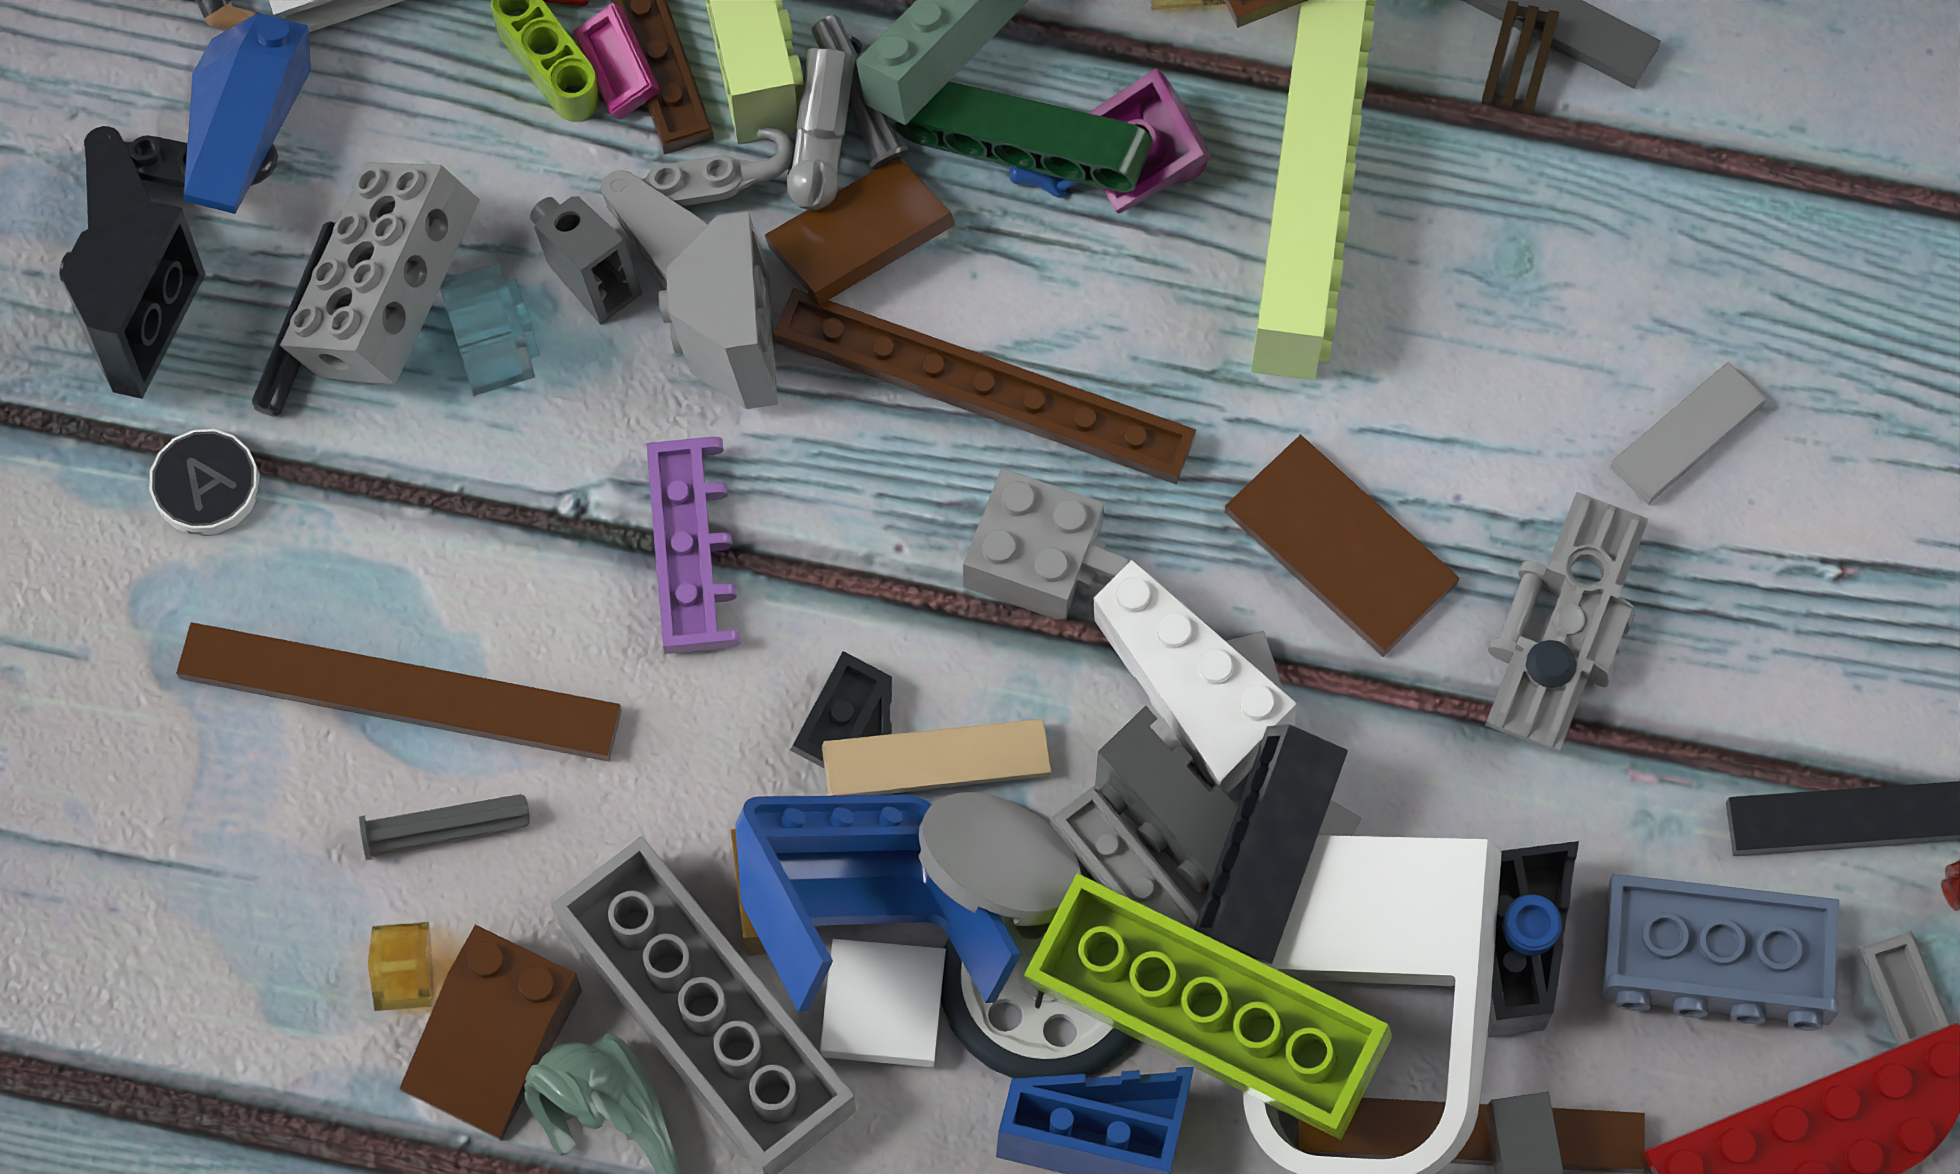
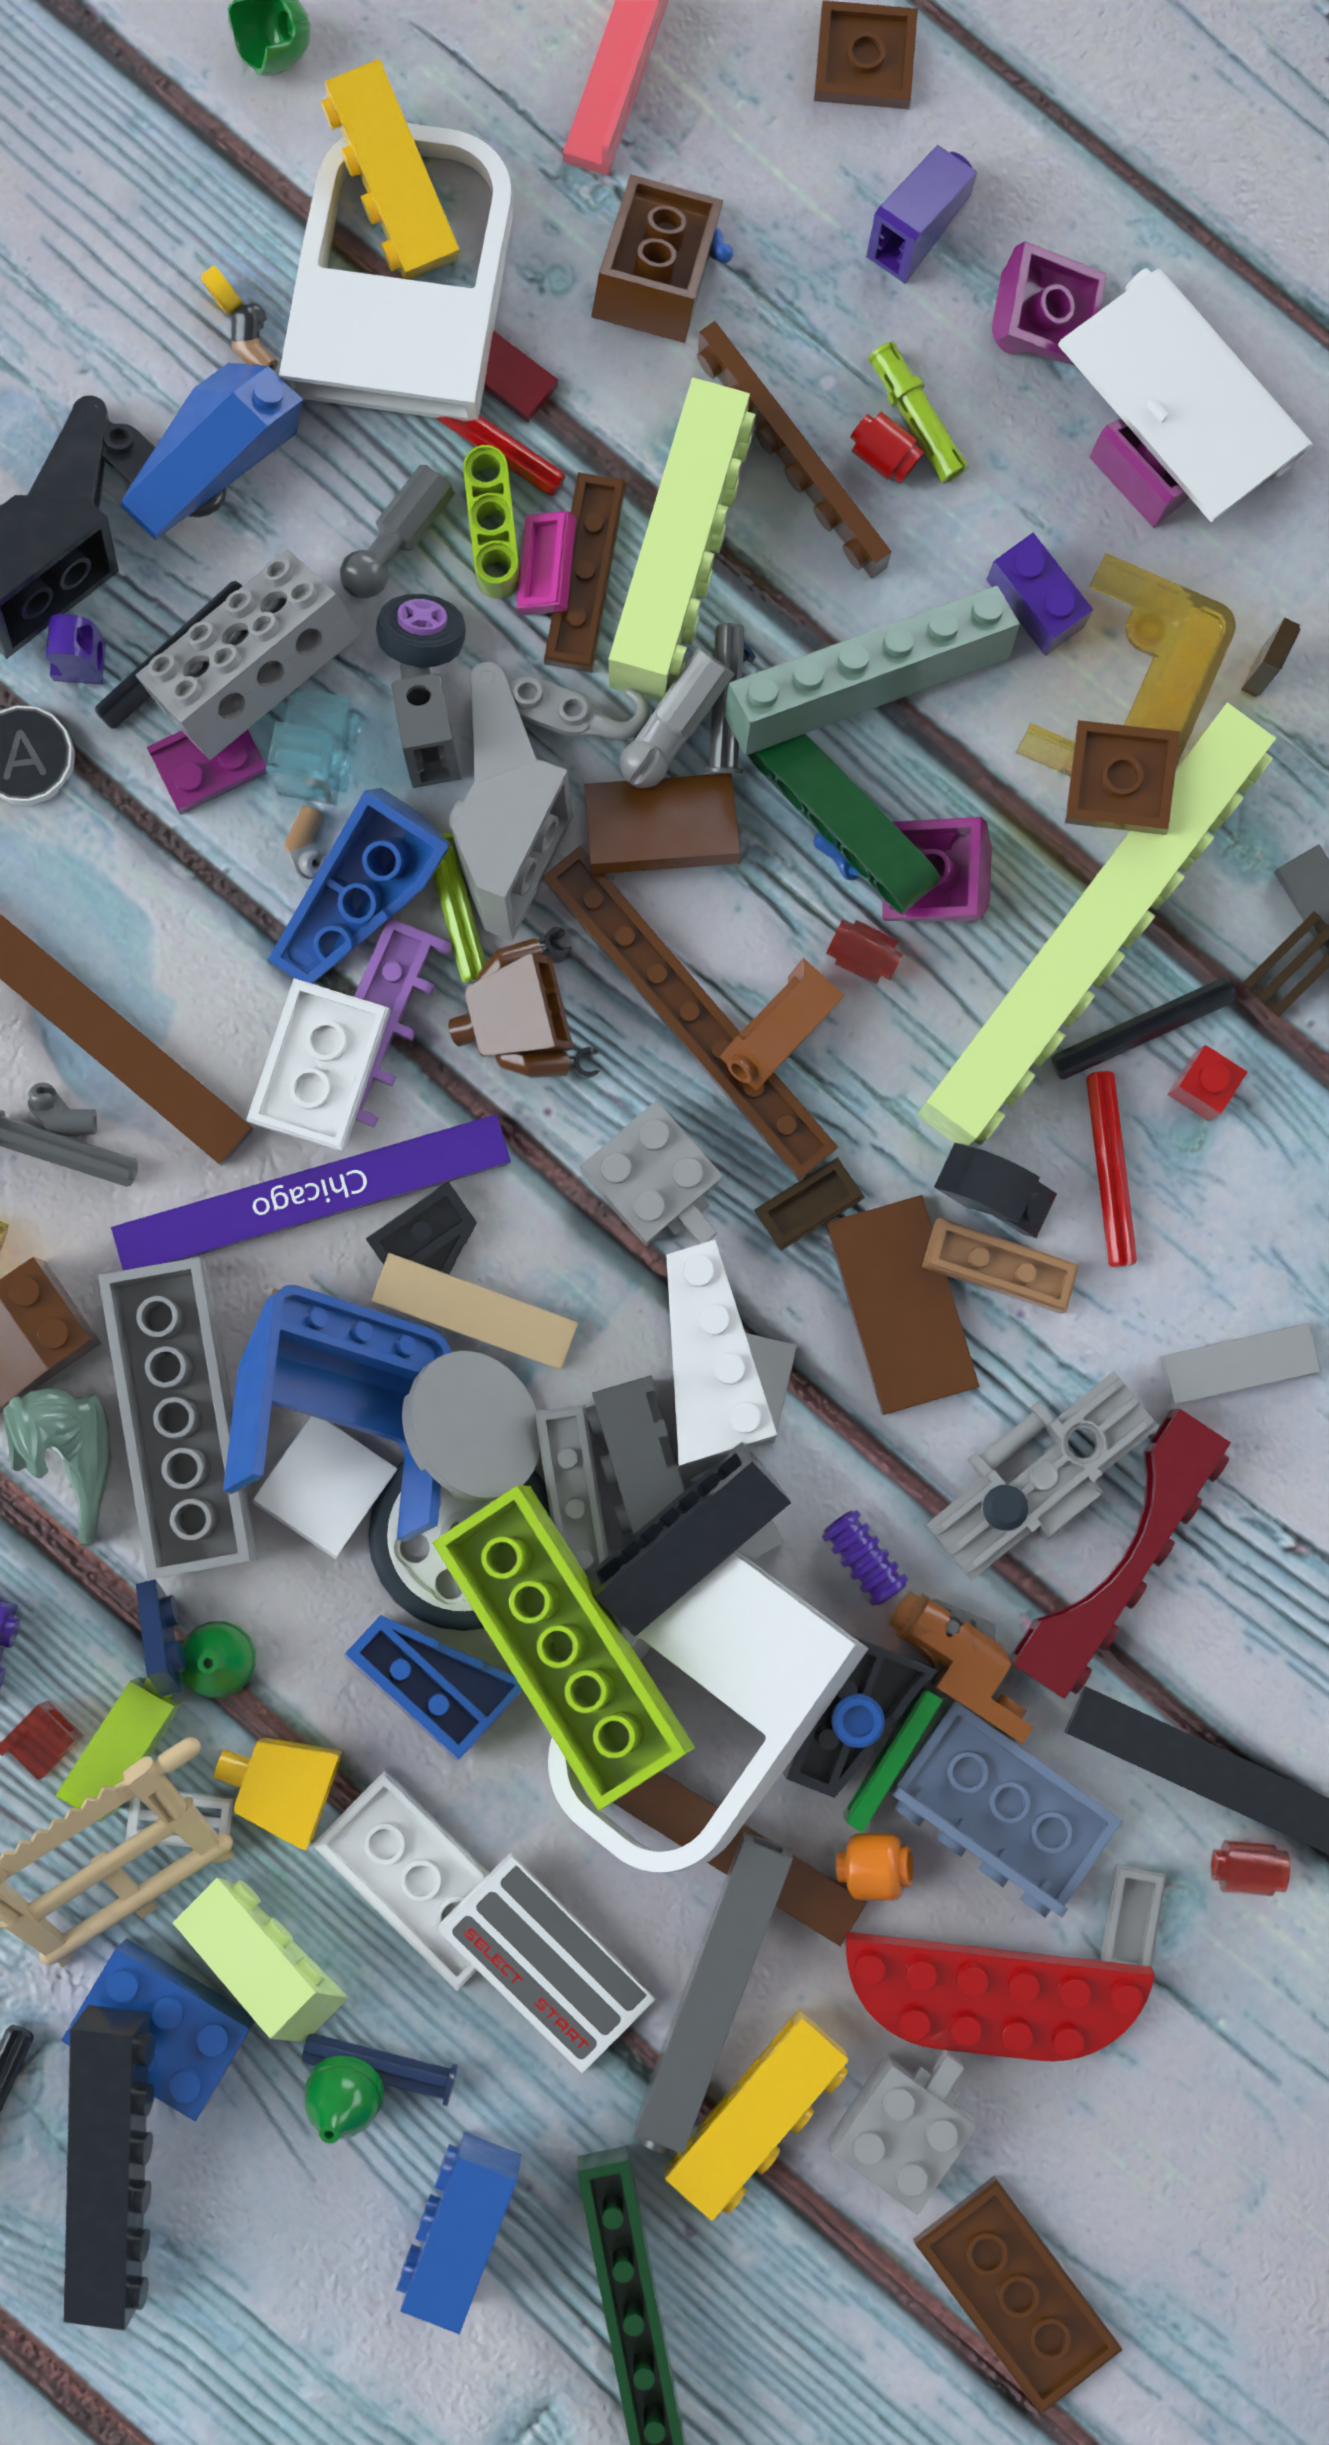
camera: 20 degrees right, 15 degrees up
(205, 355) = (75, 650): none -> dark purple leg
(385, 414) = (195, 778): none -> magenta plate
(416, 795) = (56, 1115): none -> dark grey arm
(459, 98) = (400, 528): none -> dark grey piece
(523, 426) = (301, 845): none -> arm
(532, 174) = (420, 630): none -> black wheel
(605, 419) = (367, 877): none -> blue wedge
(656, 609) = (318, 1065): none -> white tile
(704, 403) = (458, 915): none -> lime axle
(718, 733) = (312, 1194): none -> dark purple tile
(825, 463) = (520, 1012): none -> torso
(1079, 345) = (781, 1025): none -> dark orange window
(1116, 246) = (864, 951): none -> clear red brick
(1199, 498) = (809, 1204): none -> dark brown tile
(1365, 385) = (996, 1188): none -> black brick
(1412, 459) = (1000, 1265): none -> medium nougat tile
(1415, 185) = (1143, 1028): none -> black axle
(1446, 790) = (864, 1557): none -> dark purple piece
(1462, 323) = (1111, 1169): none -> red axle
(1504, 198) = (1207, 1083): none -> red brick
(1585, 962) = (891, 1759): none -> green tile
(1607, 832) = (968, 1655): none -> dark orange plate
(1631, 1071) = (875, 1866): none -> orange head
(1686, 553) = (1176, 1468): none -> dark red arch

